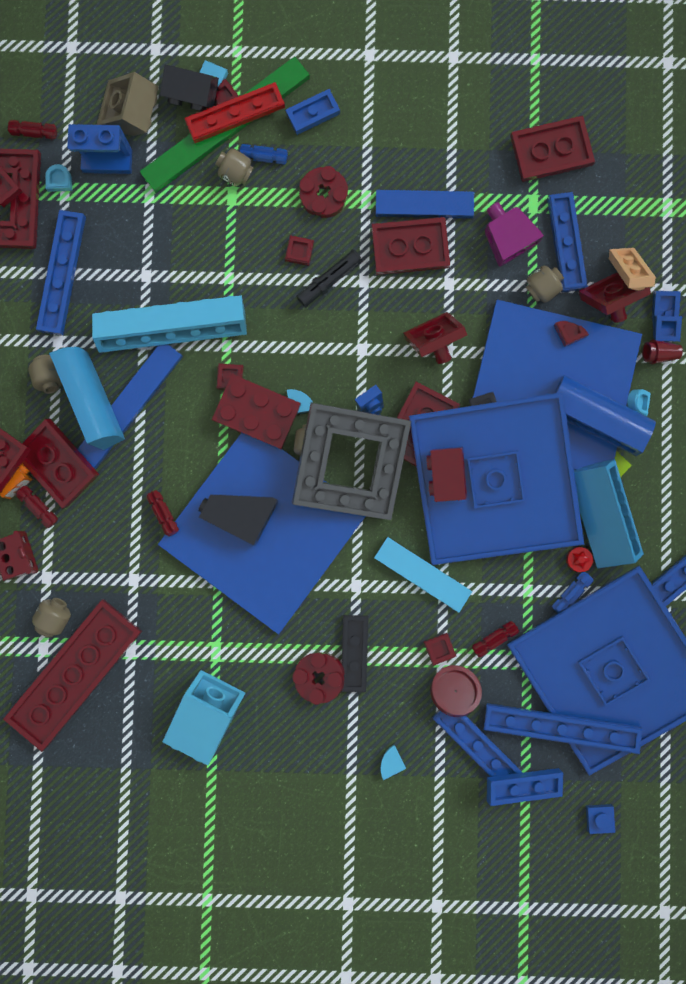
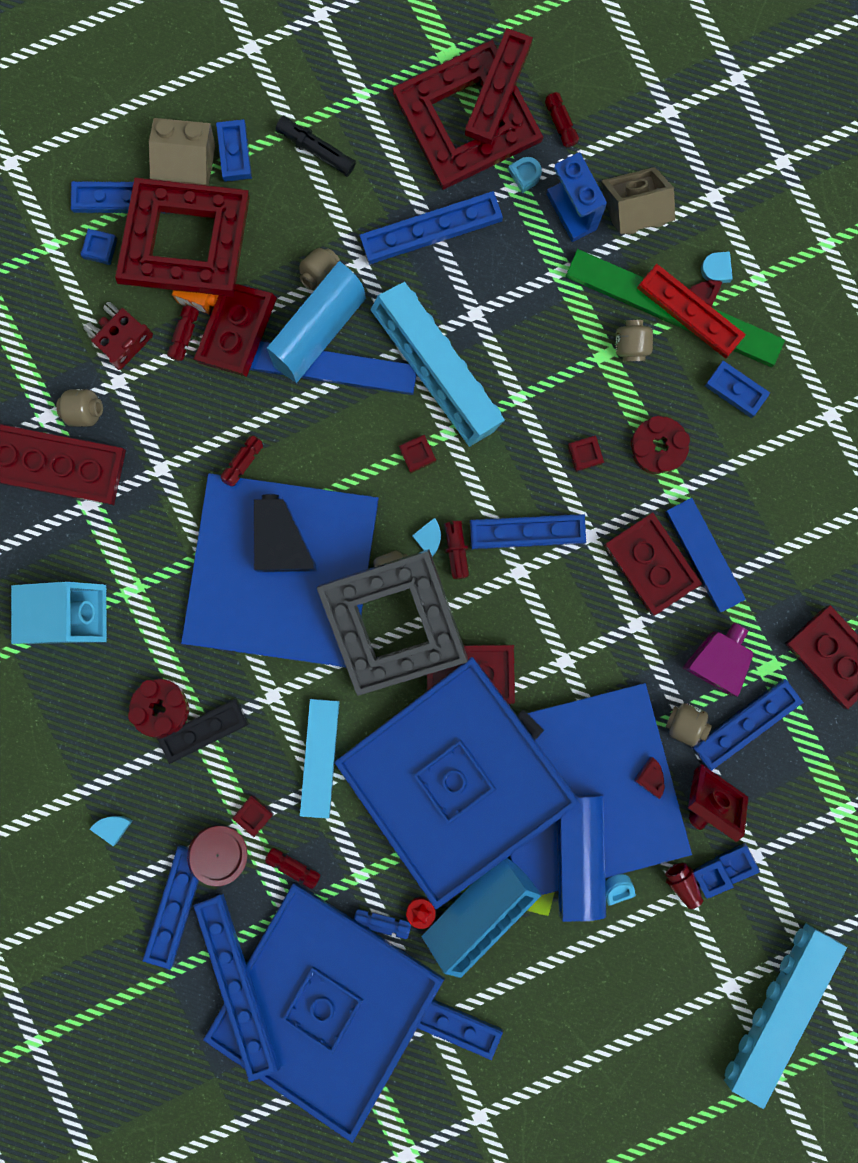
camera: 60 degrees right, 0 degrees up
(188, 86) = (691, 251): black brick -> none
(256, 411) = (394, 499): dark red plate -> none
(264, 154) = (666, 364): blue axle -> none
(320, 386) = (456, 550): none -> dark red axle
(321, 285) = (572, 499): black pin -> none
(335, 326) = (528, 531): none -> blue tile
(370, 401) = (465, 610): blue plate -> none
(435, 336) = (570, 640): dark red tile -> none
(447, 474) = (432, 729): dark red brick -> none
(524, 787) = (155, 979): blue plate -> none
(600, 819) = (165, 1075): blue plate -> none
(632, 268) = (753, 808): light nougat plate -> none

